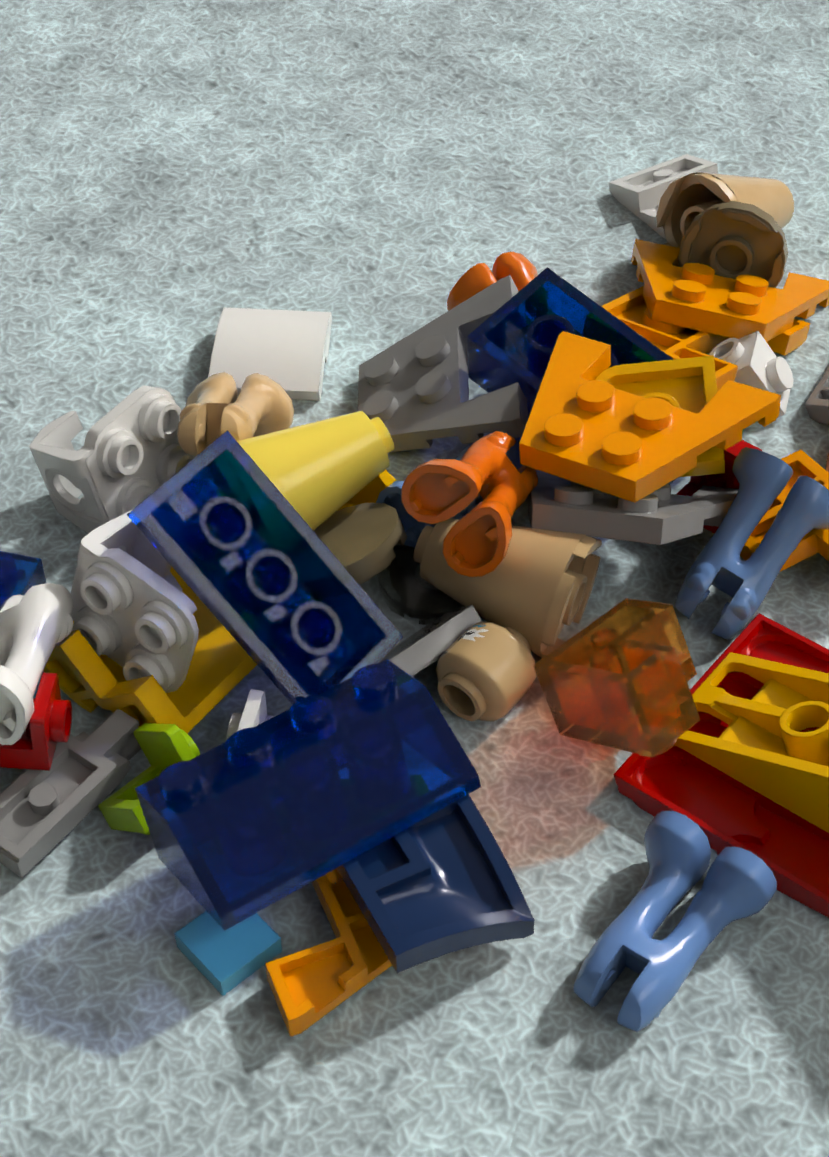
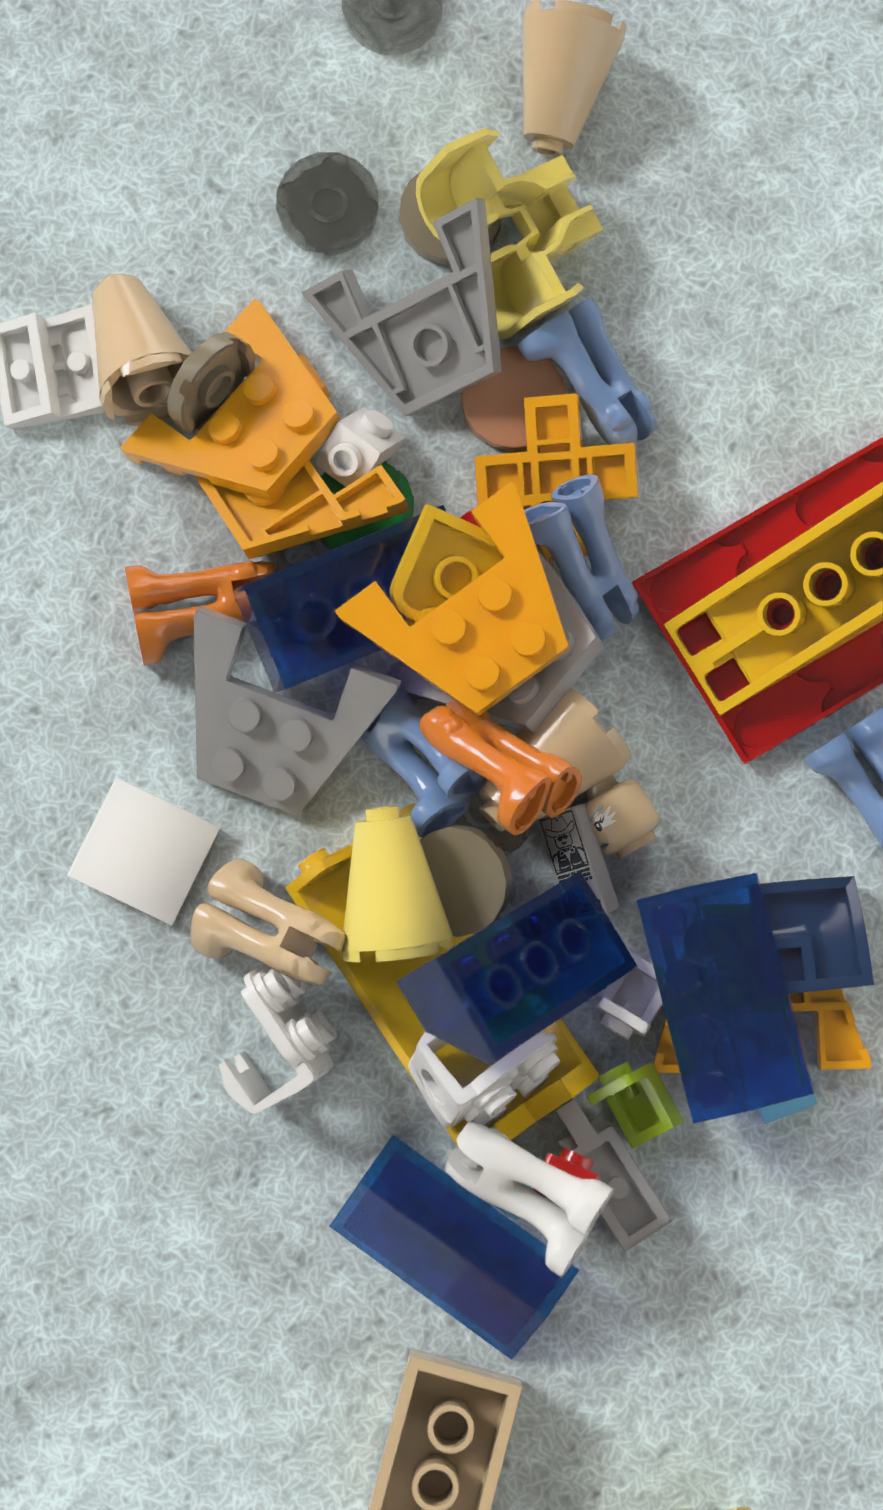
camera: 70 degrees left, 35 degrees up
(623, 680) = (674, 731): clear orange brick -> none

